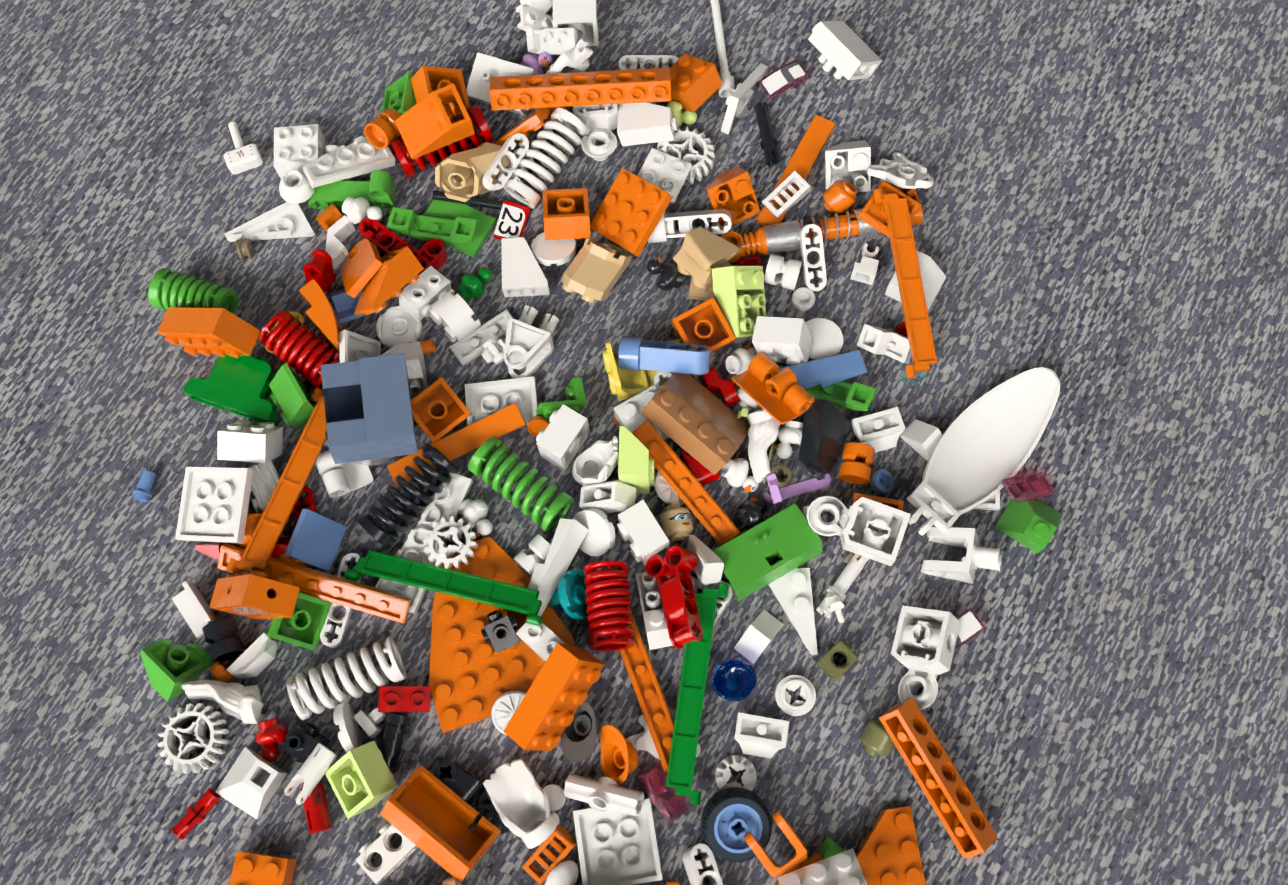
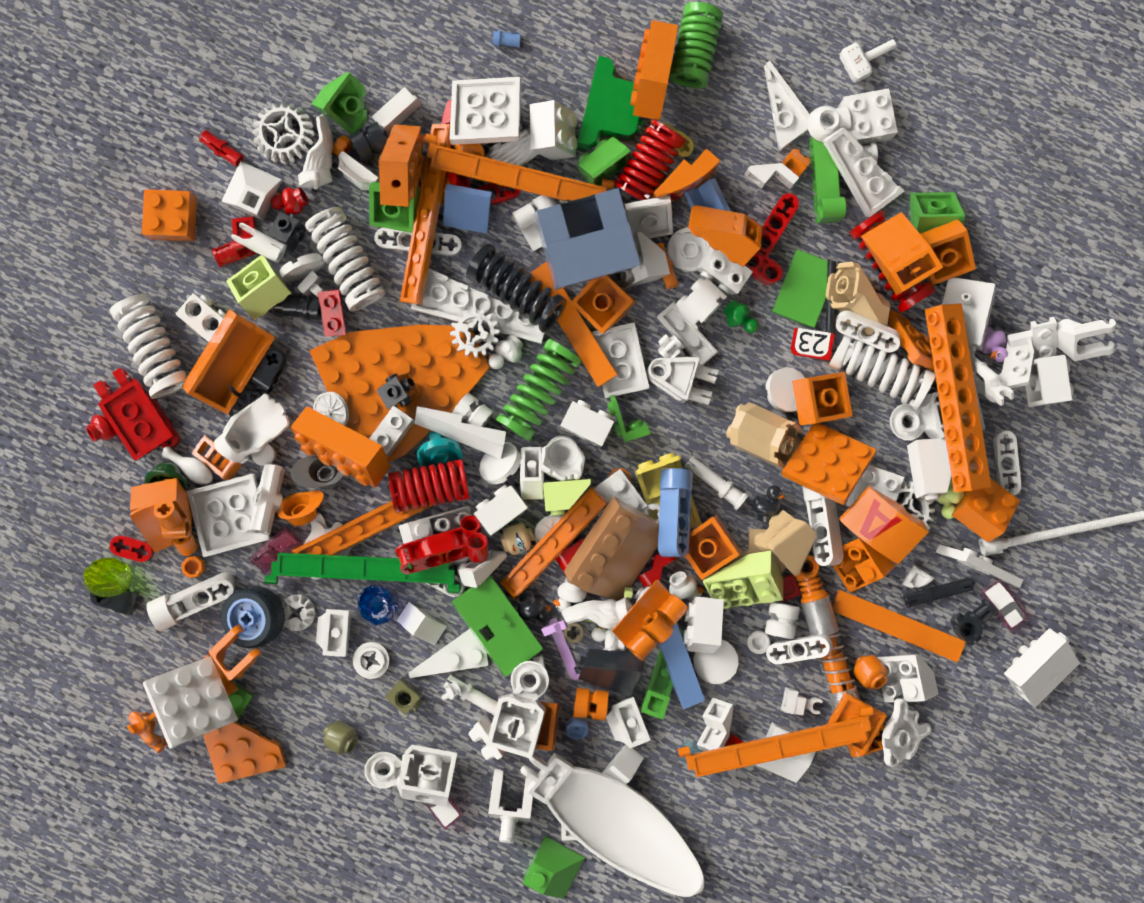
camera: 75 degrees right, 15 degrees up
(244, 248) = (756, 83): dark tan bush -> none
(289, 802) = (250, 221): none -> red tile
(320, 269) = (736, 163): red piece -> none
(358, 208) = (807, 189): white animal -> none
(360, 266) = (743, 202): orange tile -> none
(382, 129) = (897, 199): orange wheel -> none
(426, 228) = (795, 266): bright green slope -> none
(450, 583) = (436, 338): green piece -> none
(520, 270) = (760, 359): white slope -> none
(536, 424) = (599, 399): orange piece -> none
(645, 315) = (725, 489): none -> white pin
(696, 166) = (884, 524): none -> orange slope
(751, 152) = (916, 578): none -> white tile
(793, 178) = (881, 632): white slope -> none
(797, 104) = (975, 620): none -> black connector
(879, 576) = (481, 731): none -> white hips
(938, 778) = (307, 790): orange brick -> none
(1028, 488) = (582, 867): clear pink slope -> none

